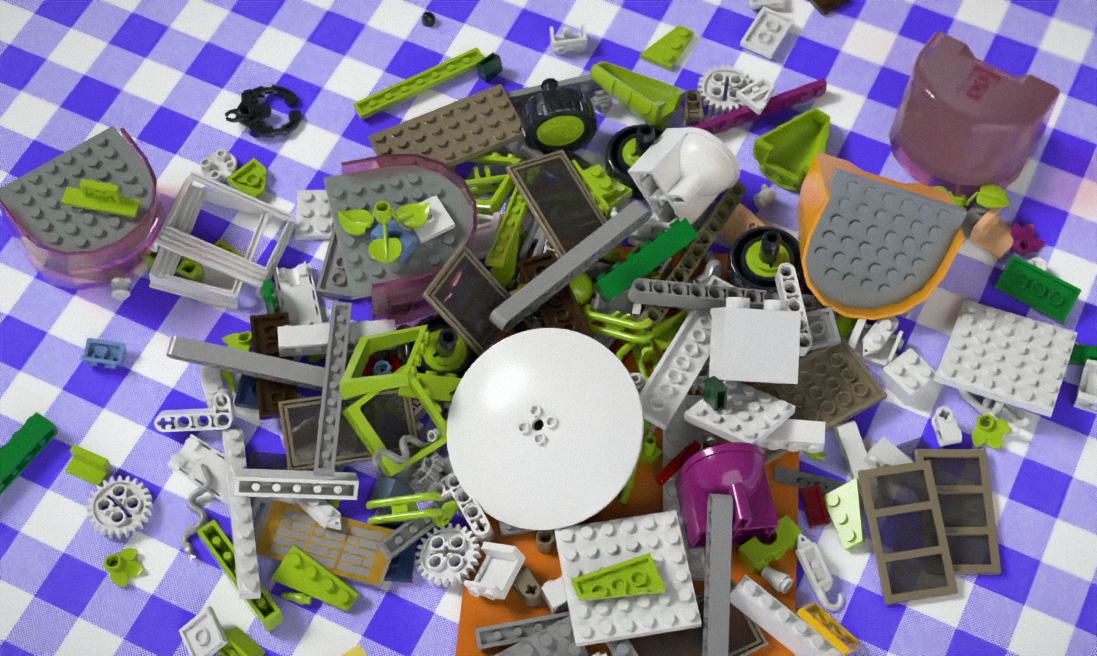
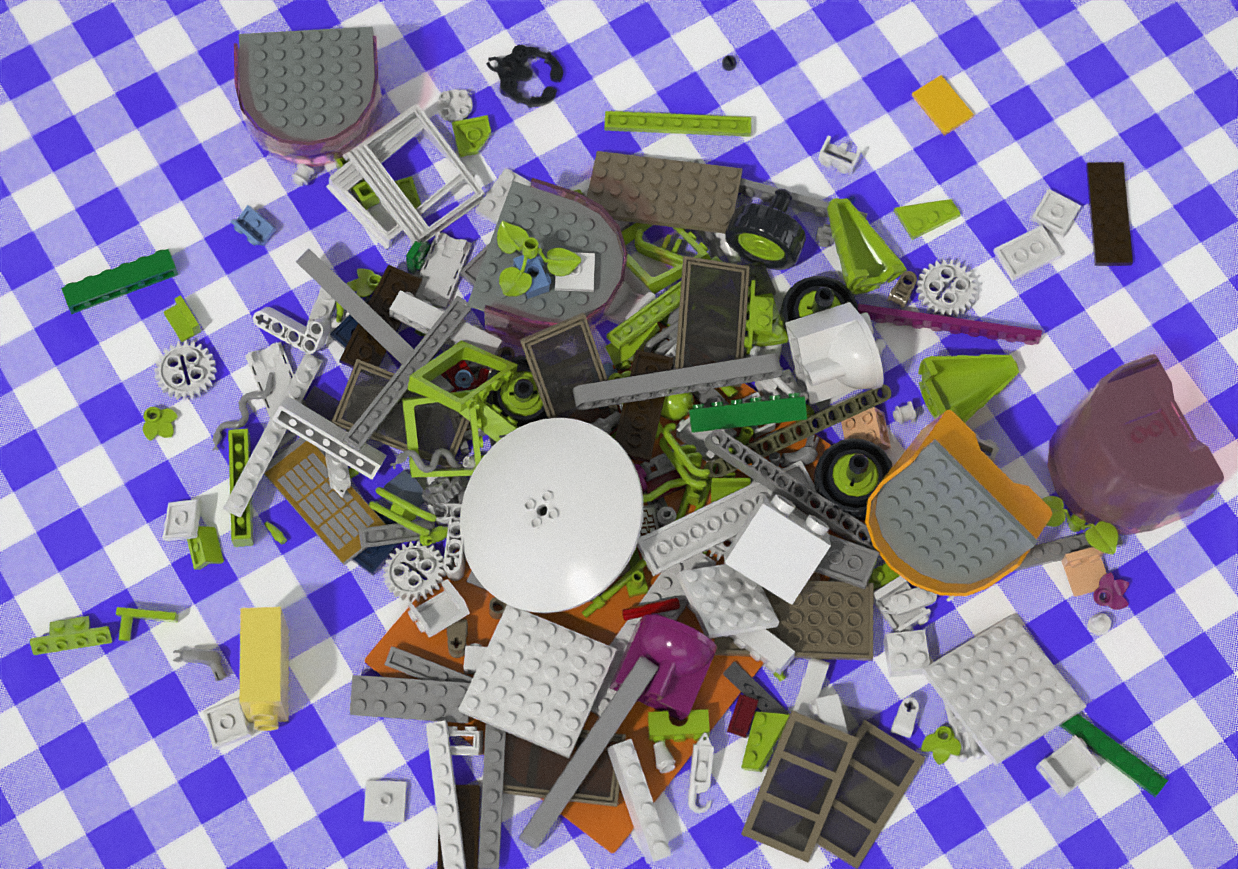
camera: 30 degrees right, 10 degrees up
(100, 197) = (318, 93): lime bracket -> none
(312, 578) = (295, 523): lime wing -> none
(489, 67) = (749, 143): dark green piece -> none
(623, 579) = (529, 681): lime wing -> none
(715, 393) = (714, 570): dark green piece -> none
(756, 94) = (966, 312): white wing -> none
(794, 300) = (846, 527): white beam -> none
(829, 628) = (675, 824): yellow tile -> none
(1038, 289) = (1083, 645): green plate -> none

